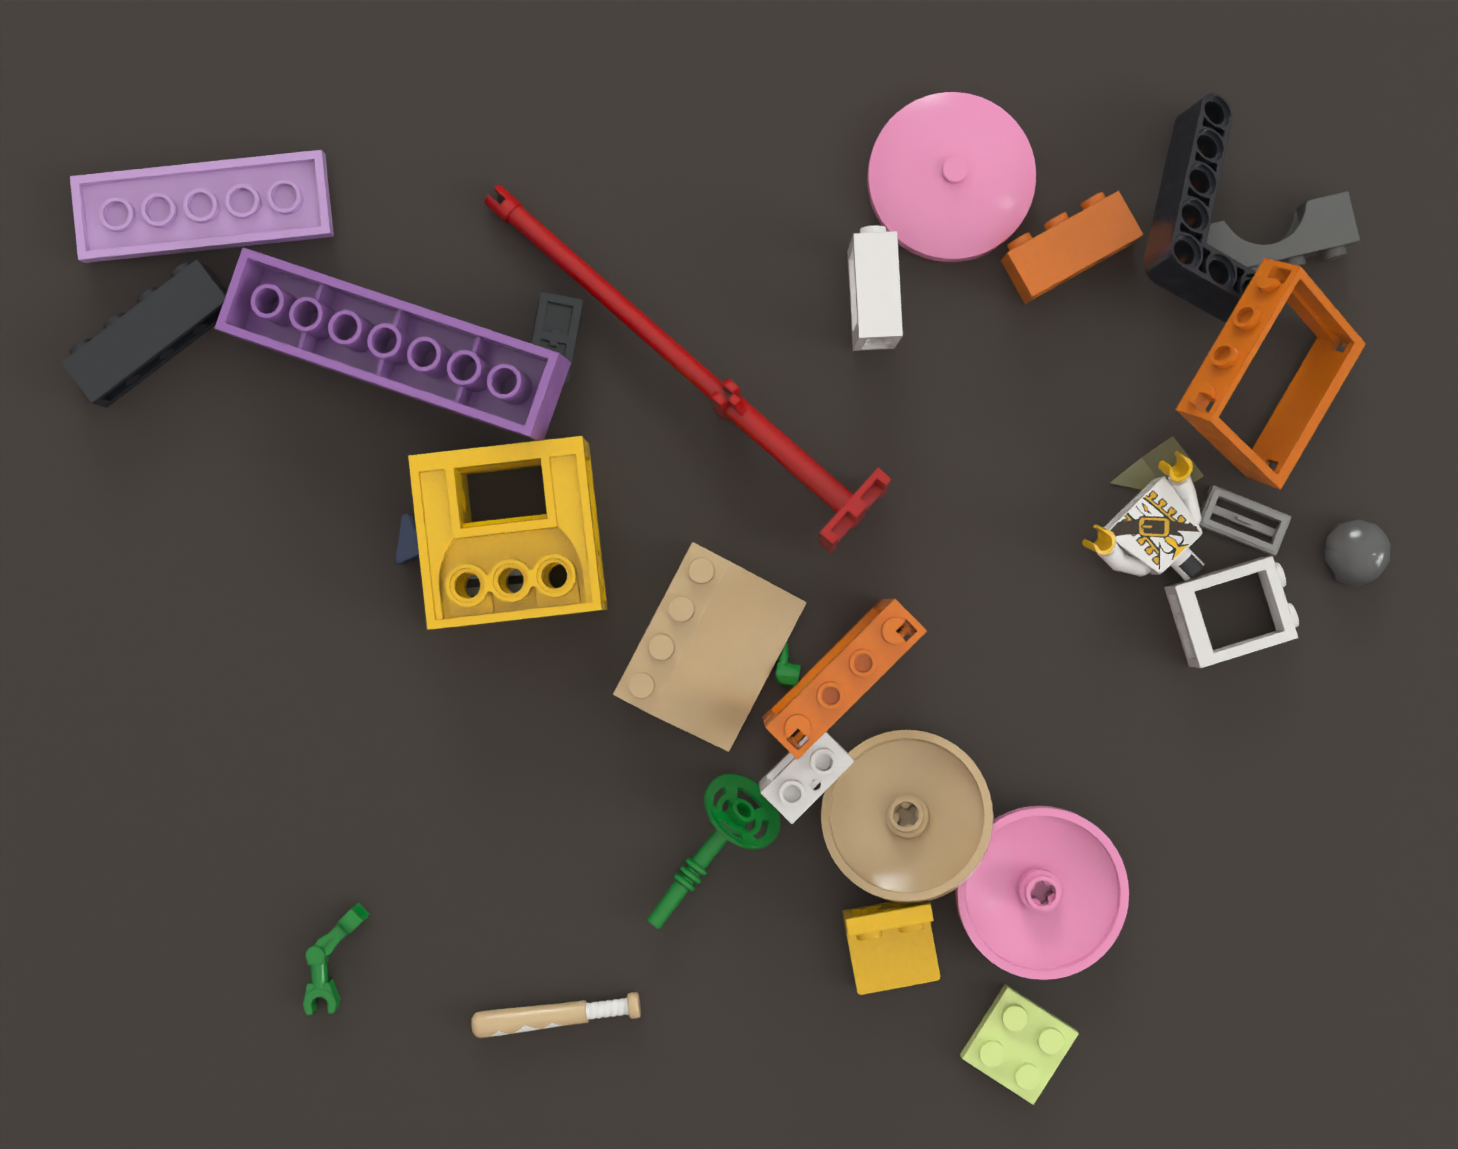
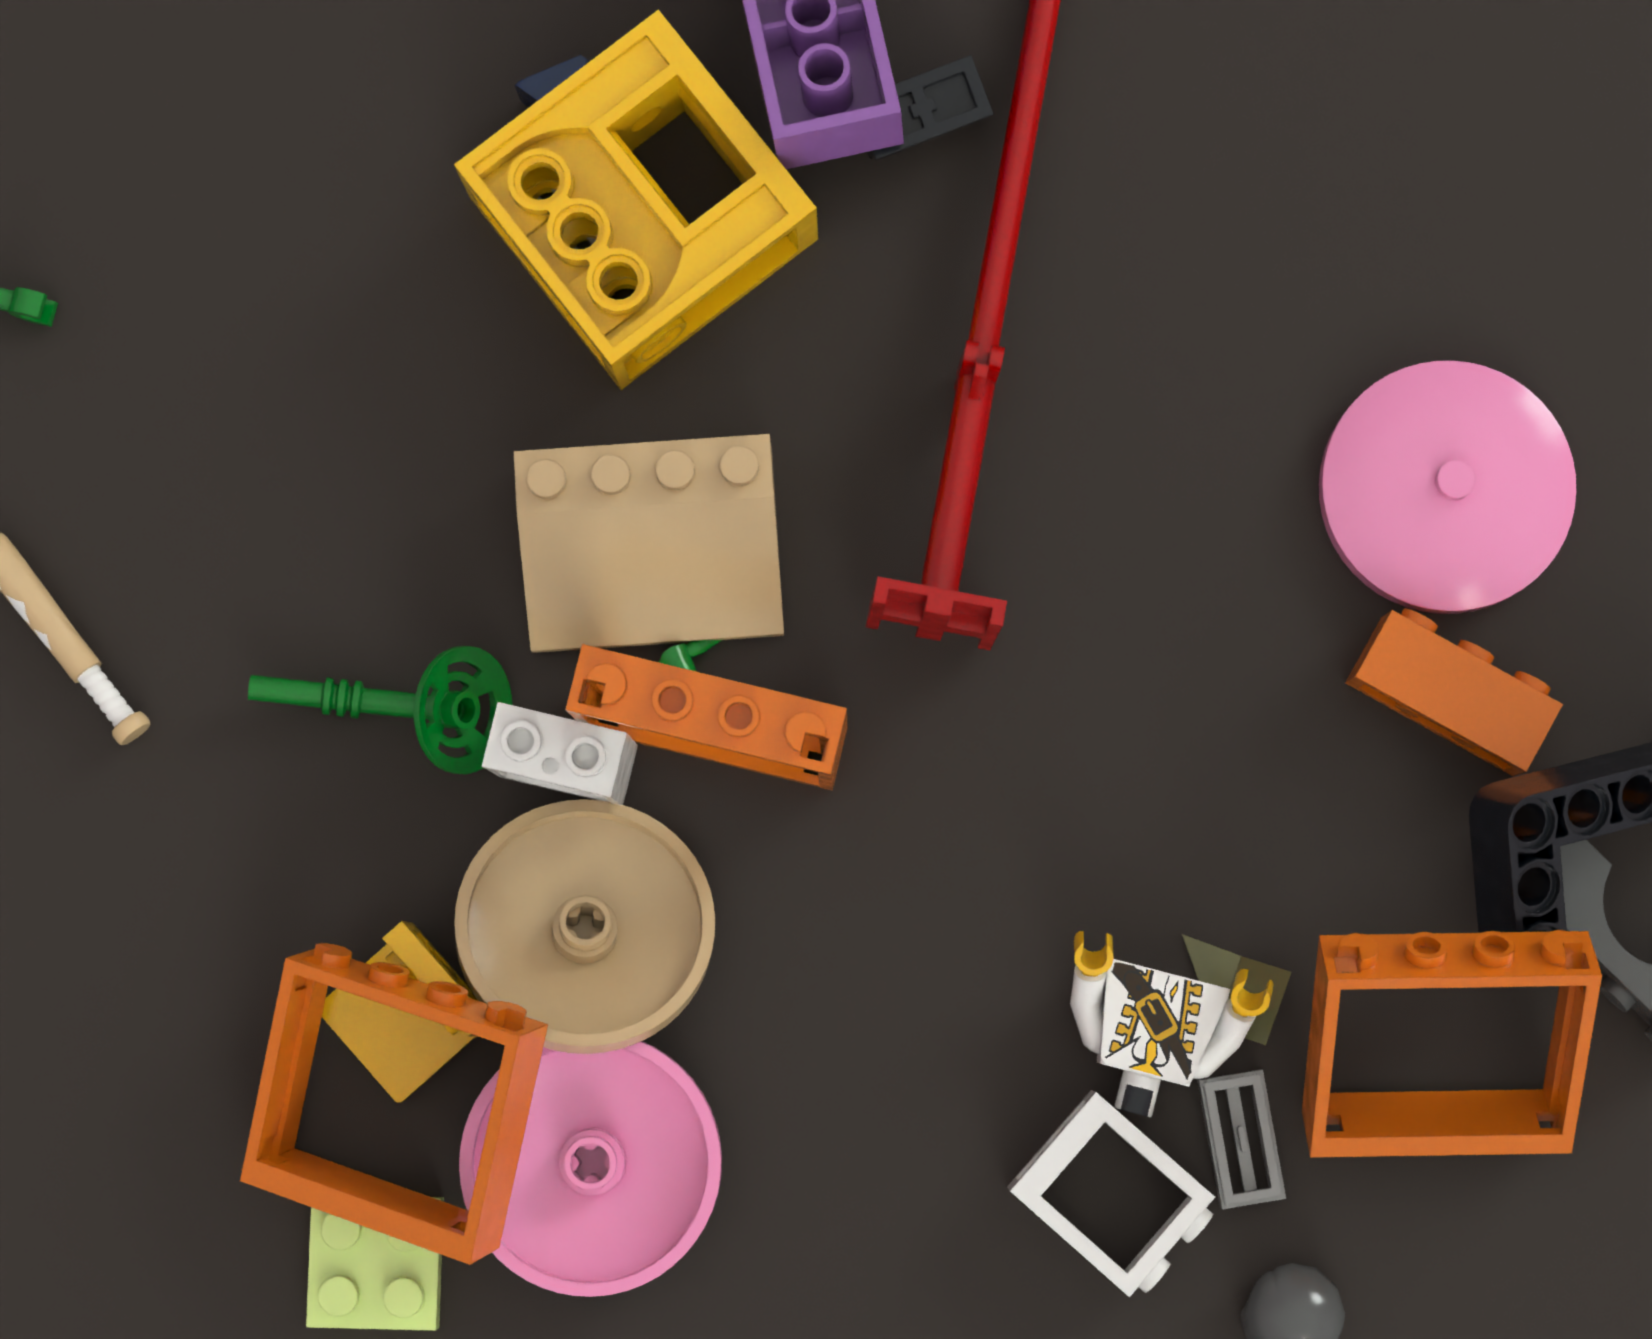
camera: 65 degrees right, 5 degrees down
(874, 289) = (1236, 468): white window -> none
(977, 1037) = (358, 1197): none -> orange window

